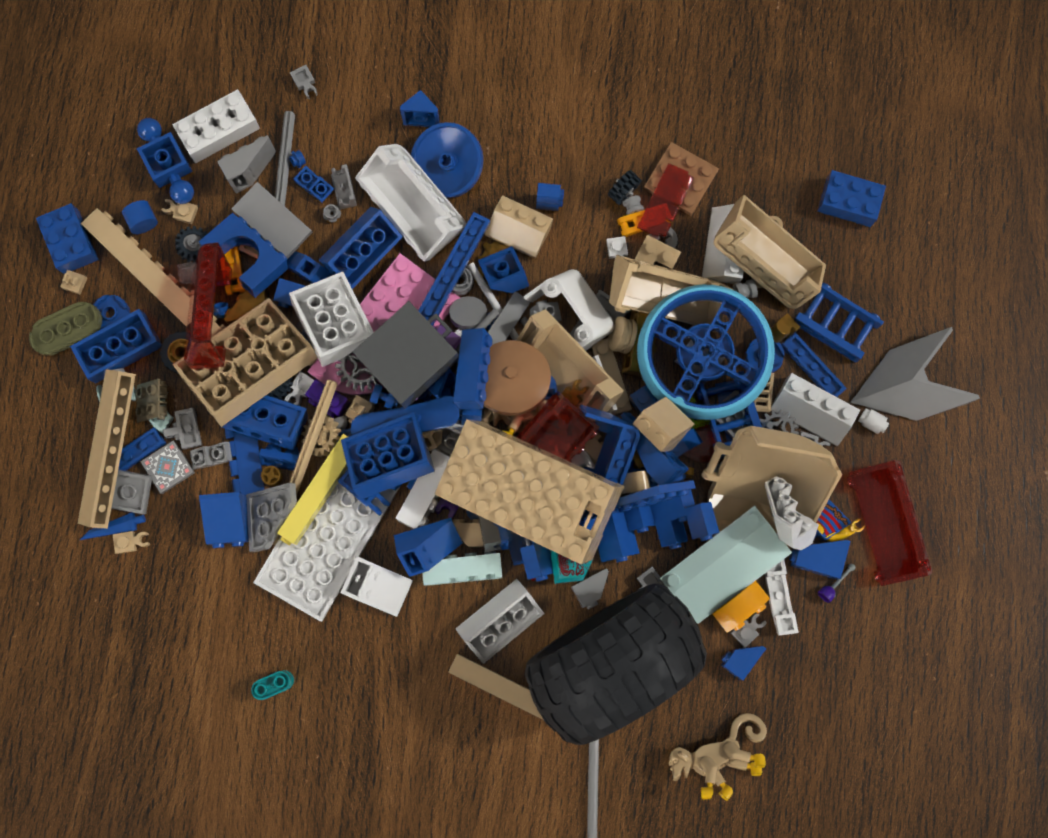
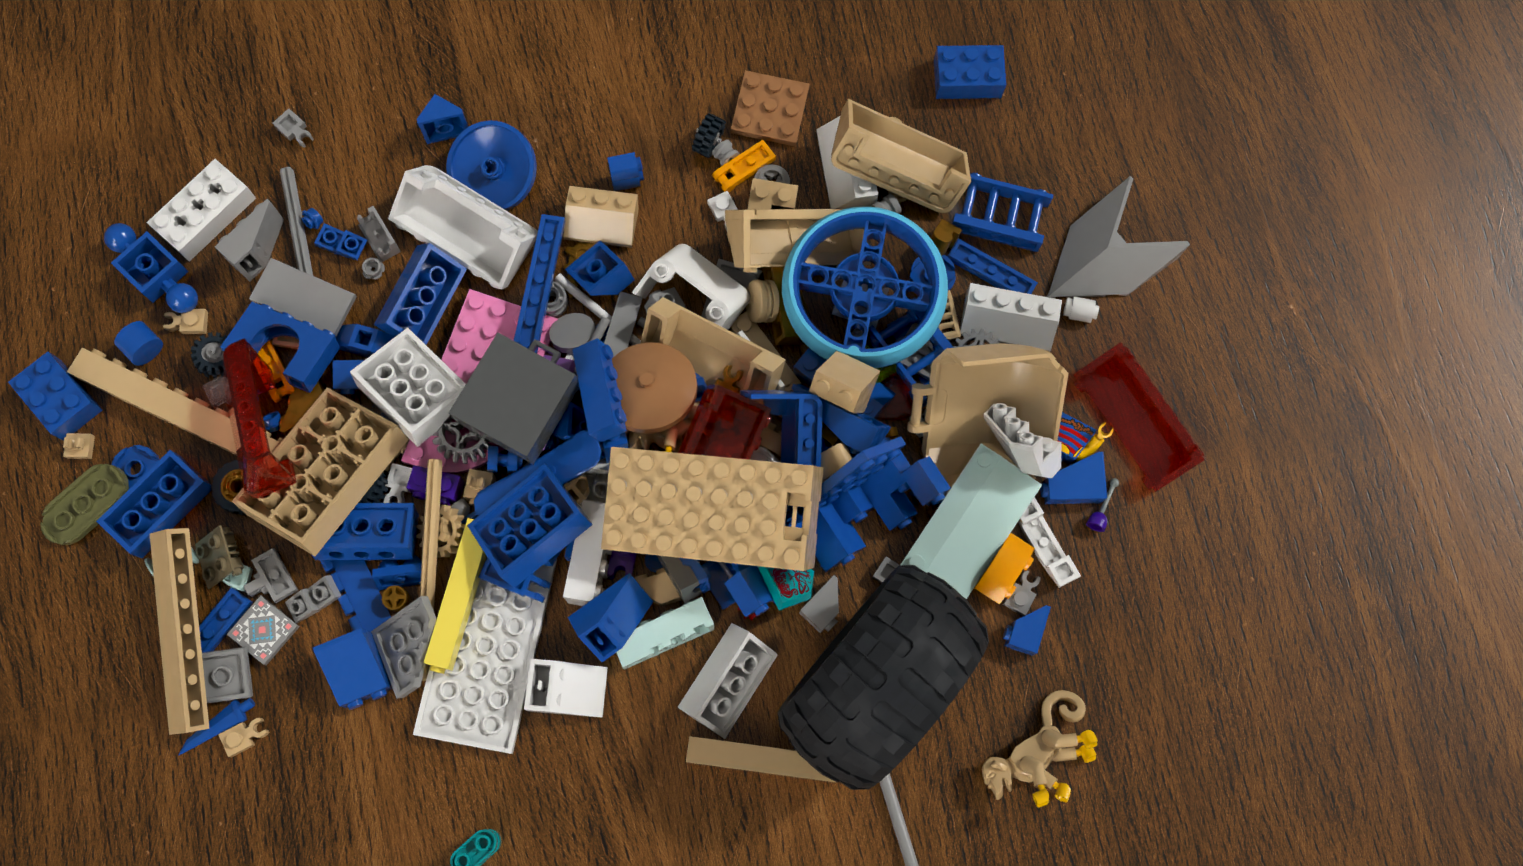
camera: 20 degrees left, 5 degrees down
(661, 204) = (760, 137): clear red windscreen -> none

